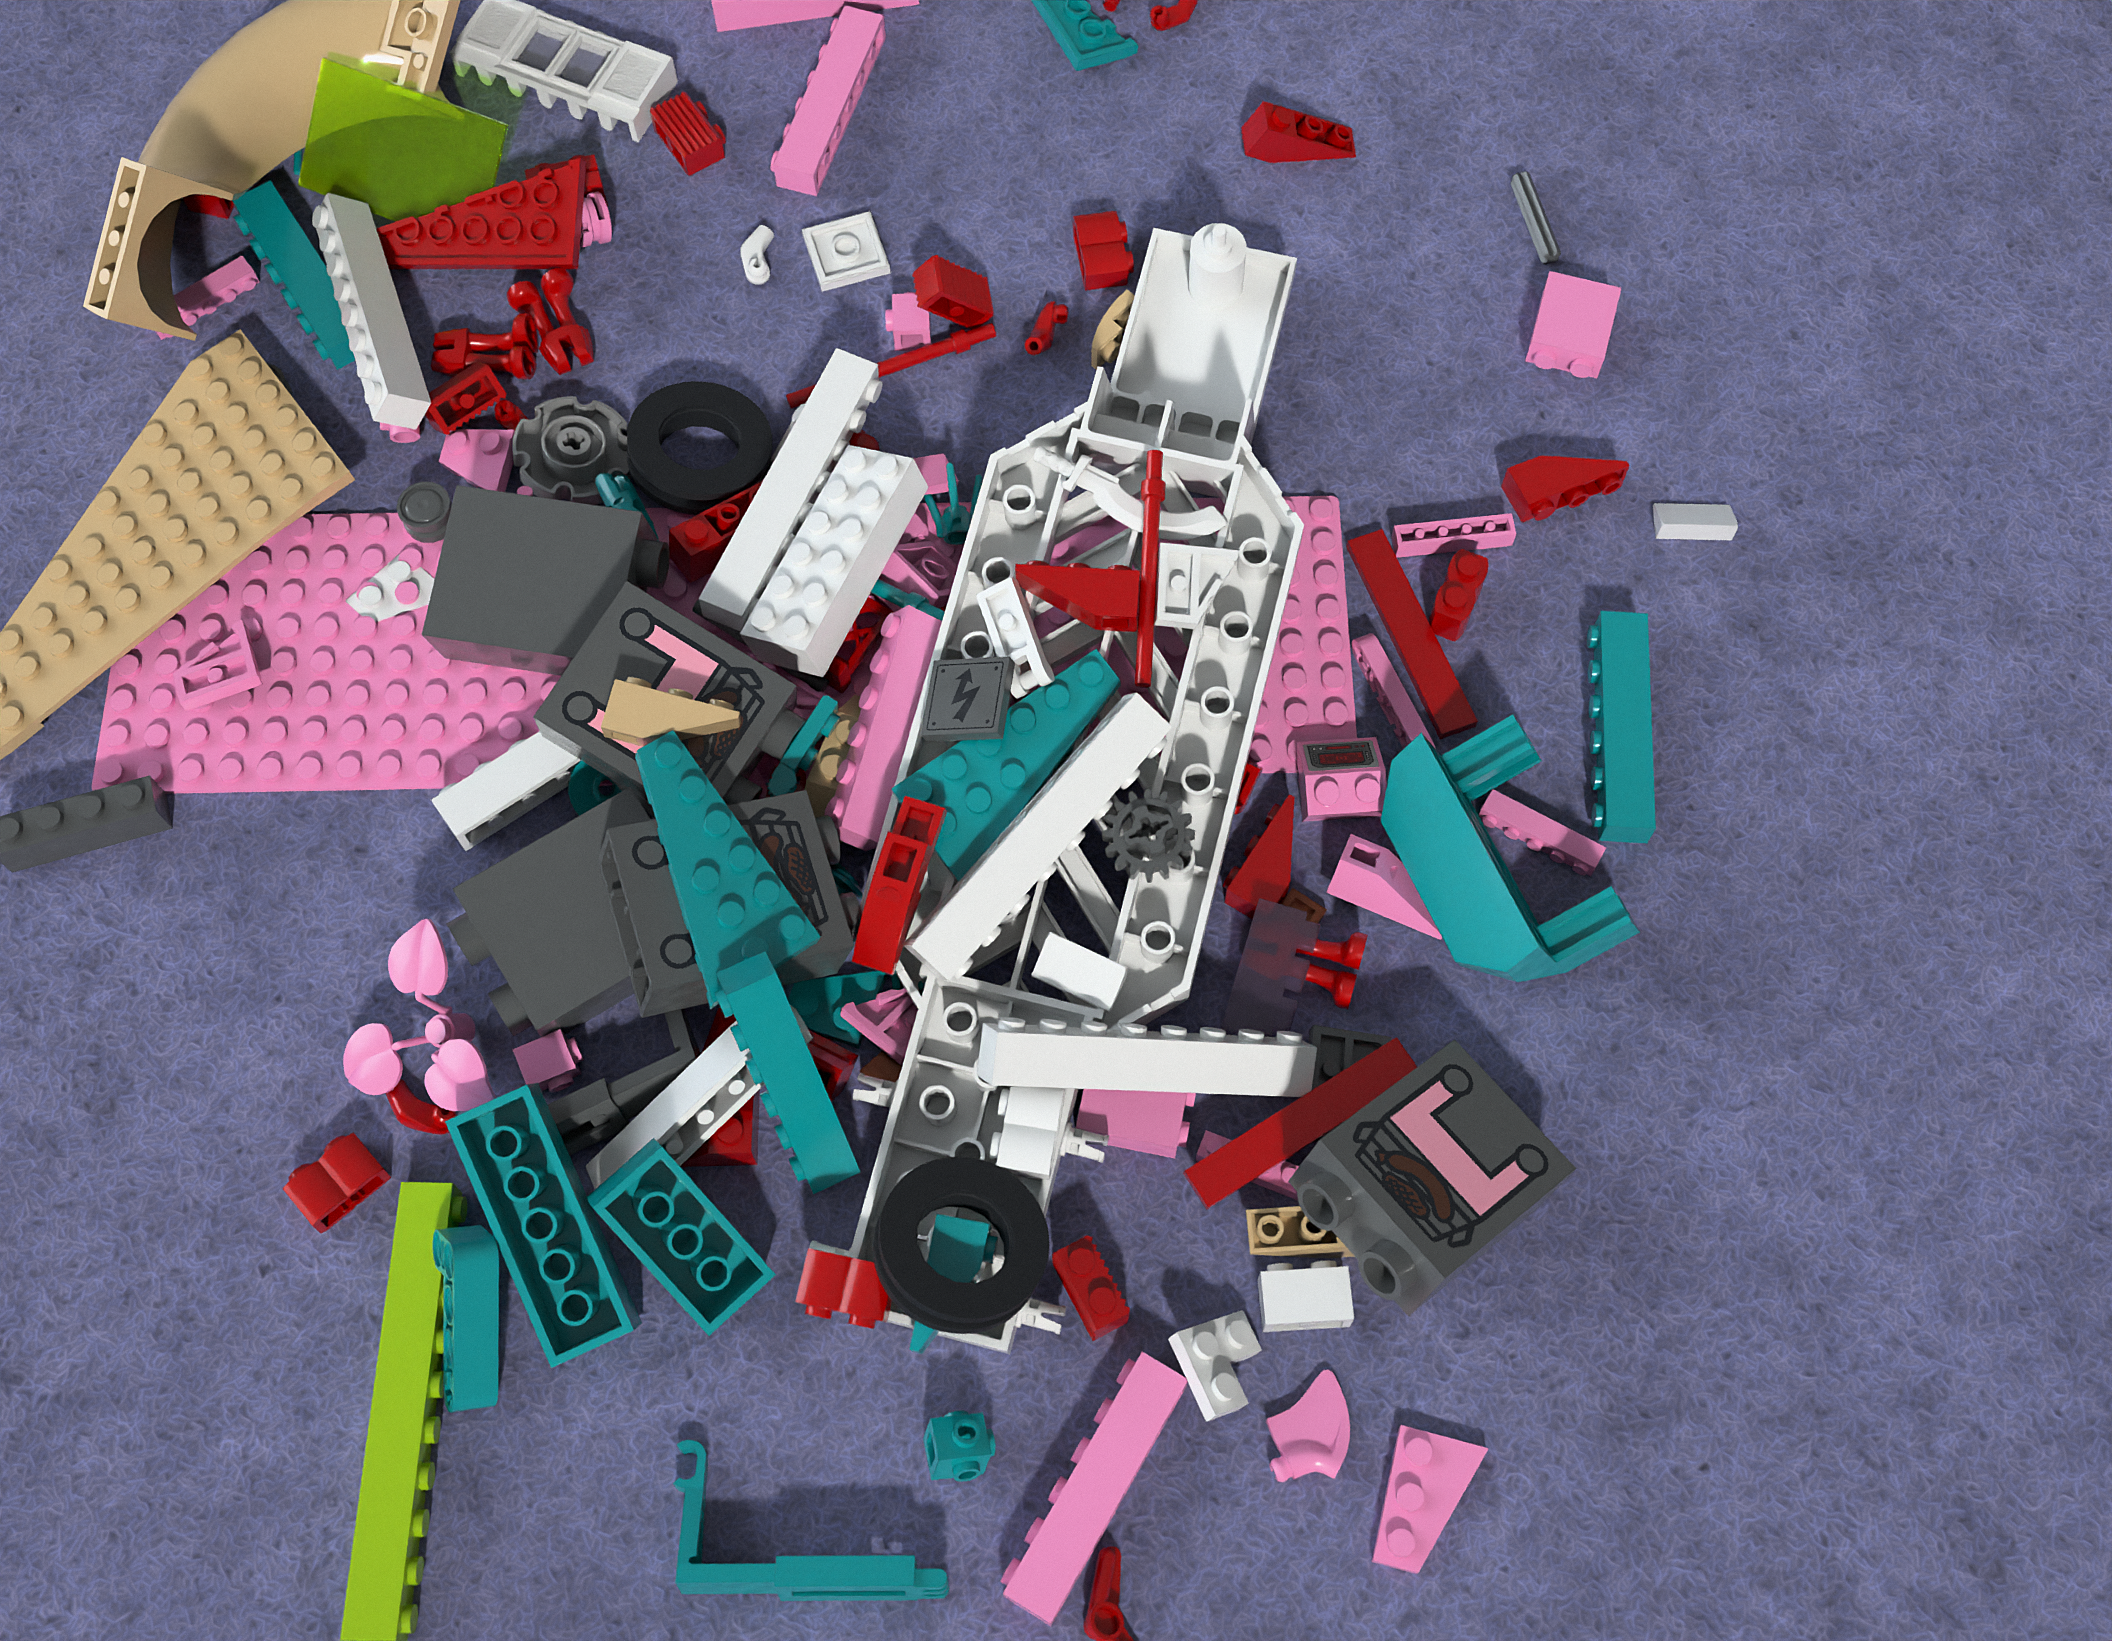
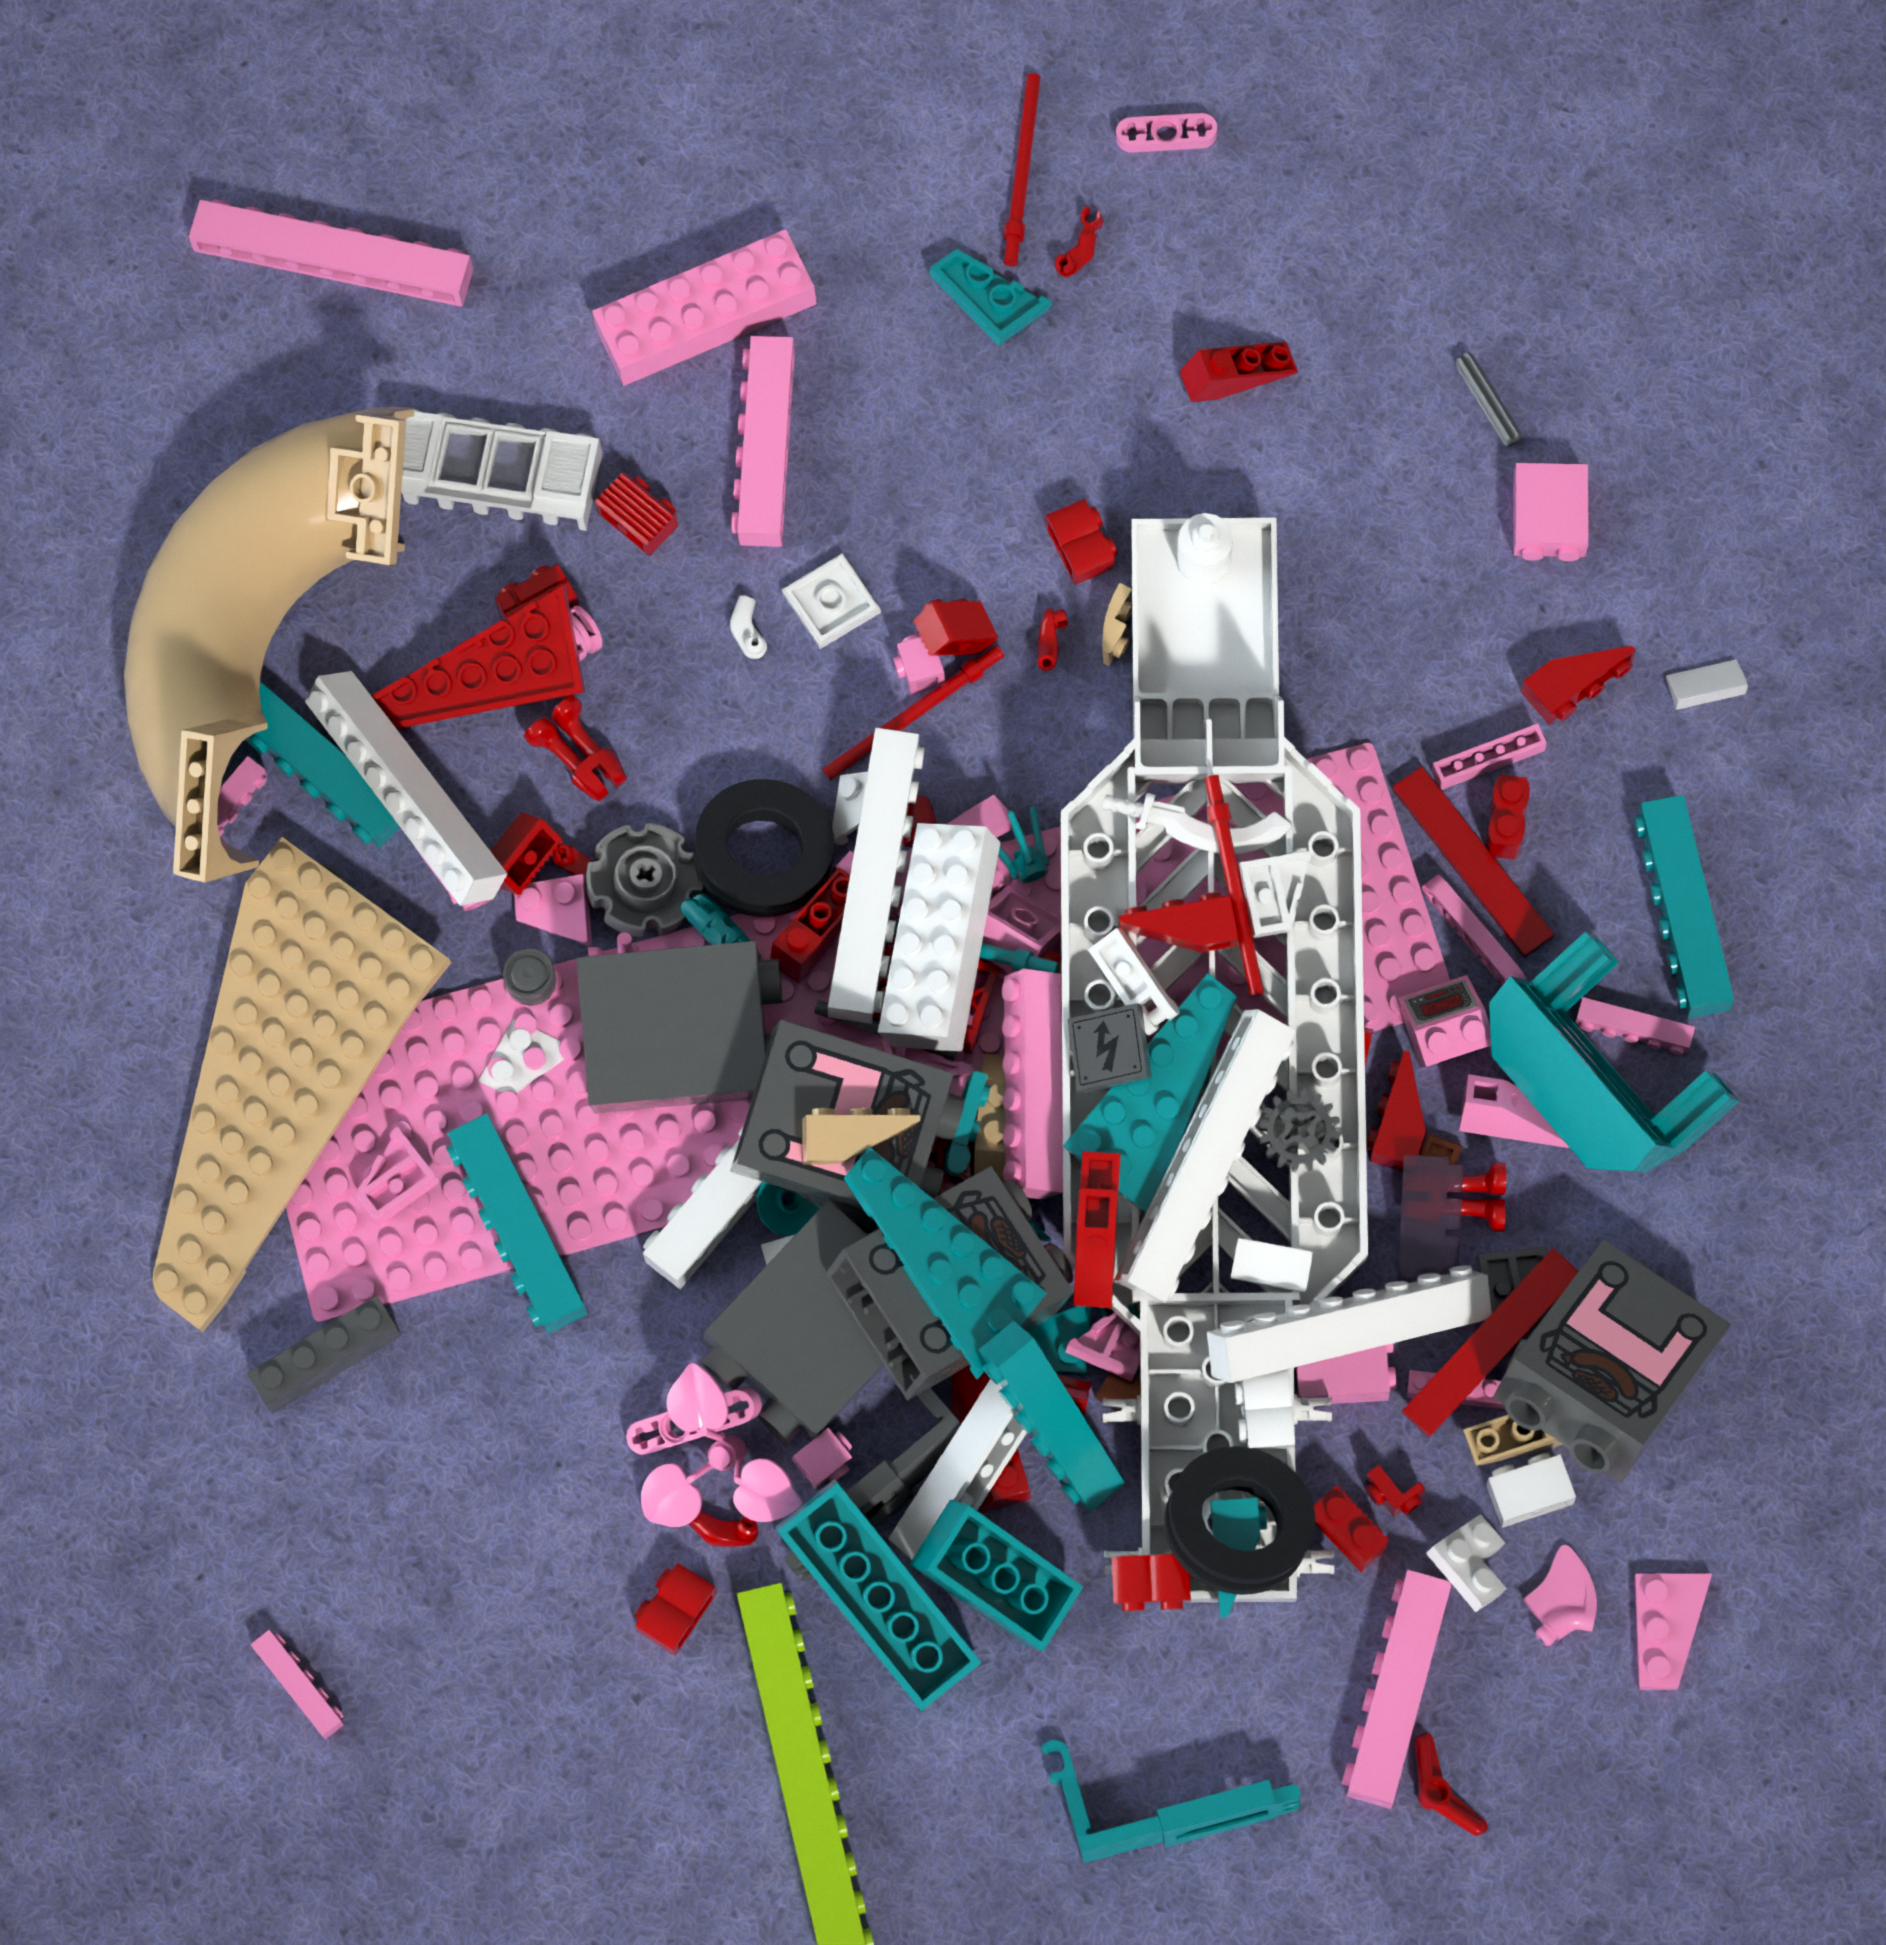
camera: 10 degrees left, 5 degrees up
(320, 744) = (517, 1225): none -> teal brick
(395, 145) = (371, 613): clear neon green piece -> none
(452, 991) = (668, 1438): none -> bright pink beam
(459, 347) = (499, 793): red piece -> none
(470, 1316) = (839, 1684): teal beam -> none
(958, 1446) = (1276, 1686): teal brick -> none
(1141, 1256) = (1384, 1491): none -> red bracket

